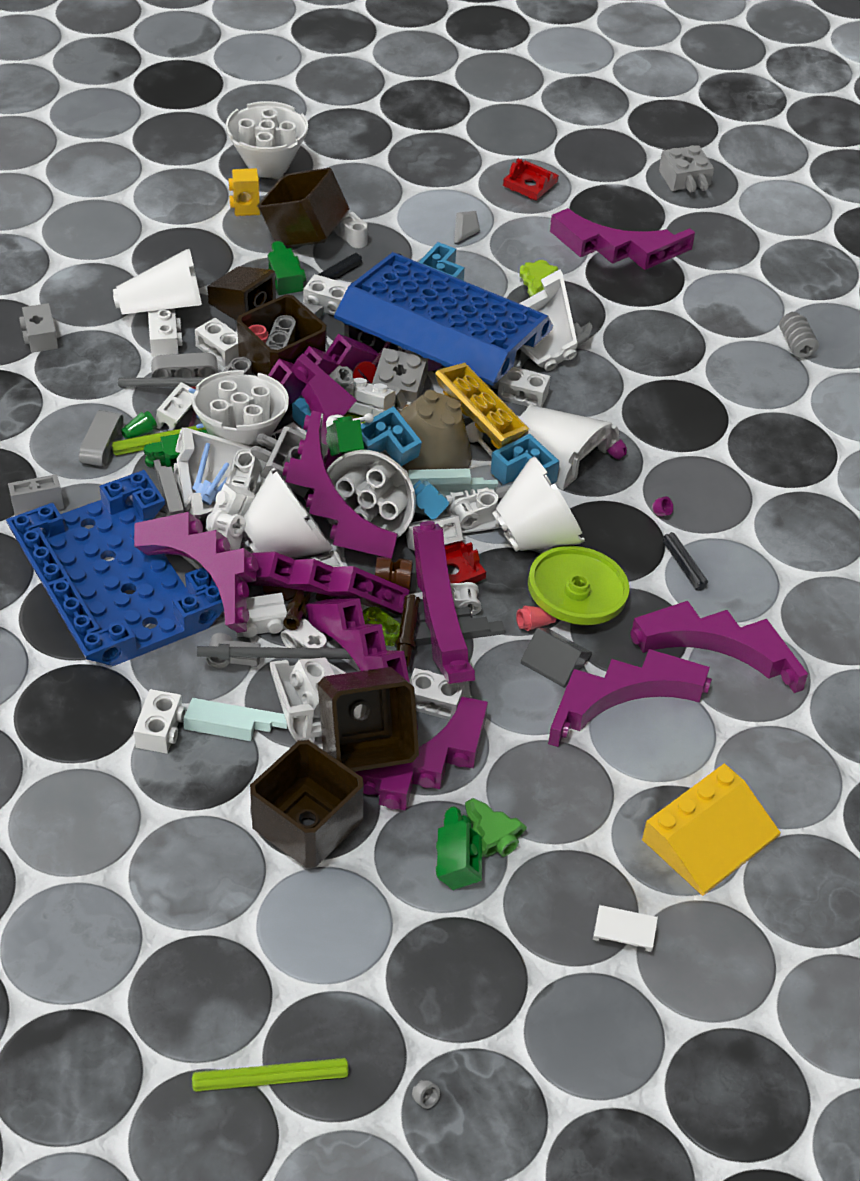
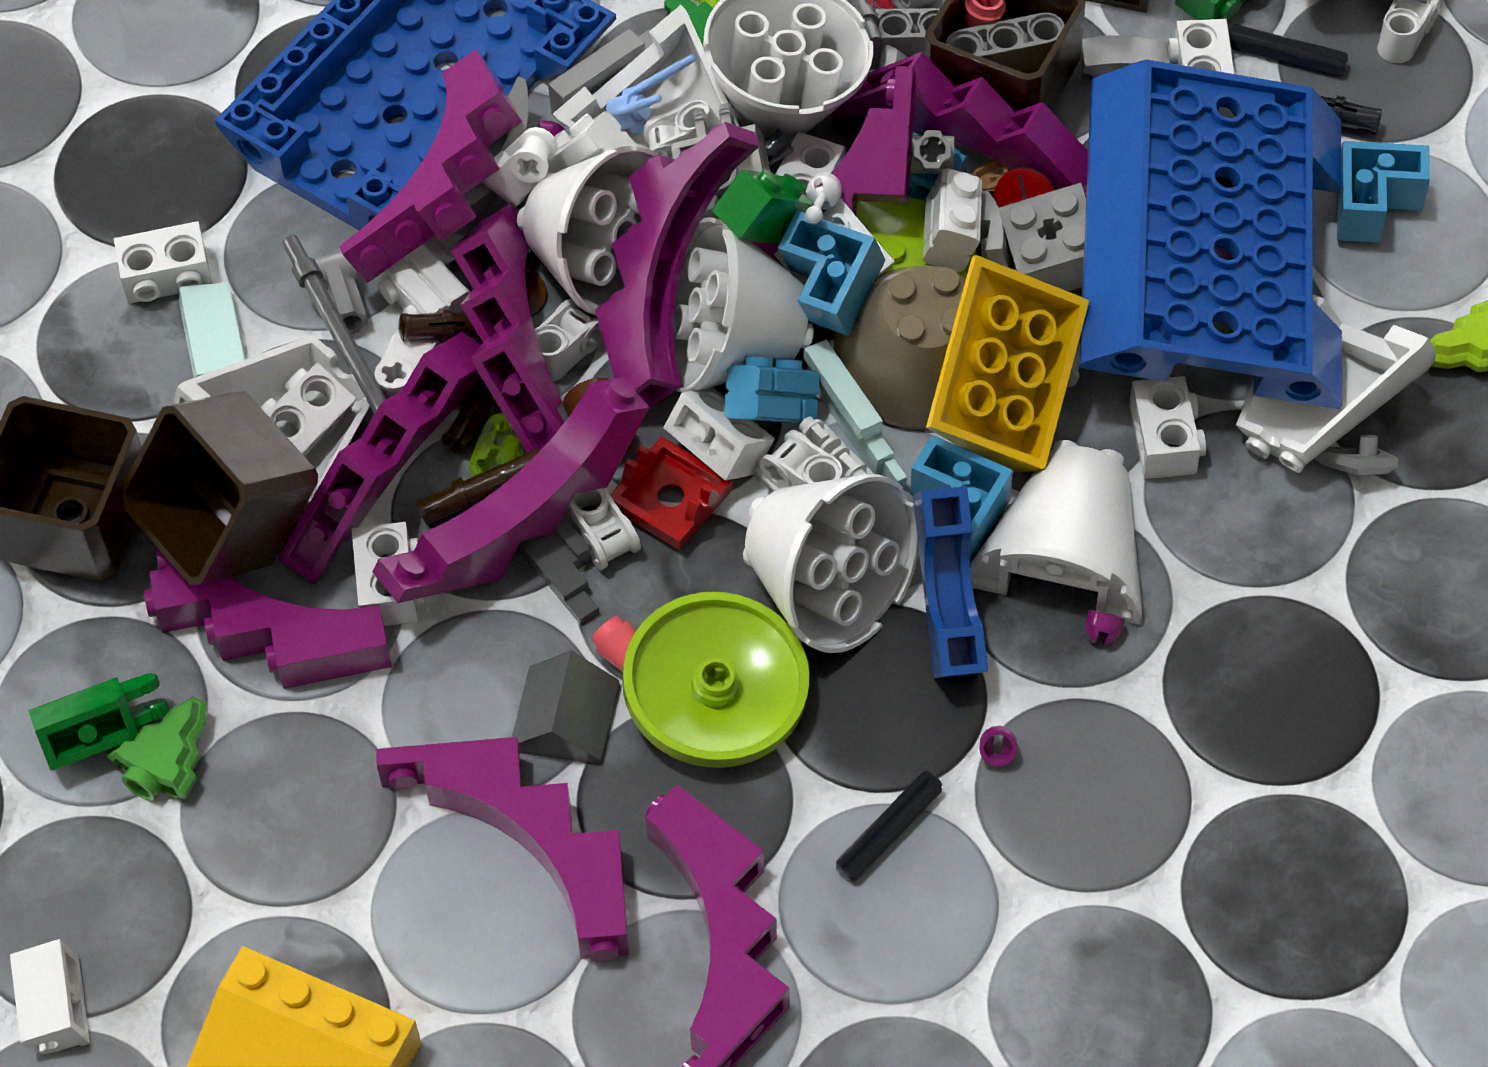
camera: 70 degrees right, 10 degrees up
(603, 492) = (951, 611): none -> blue arch

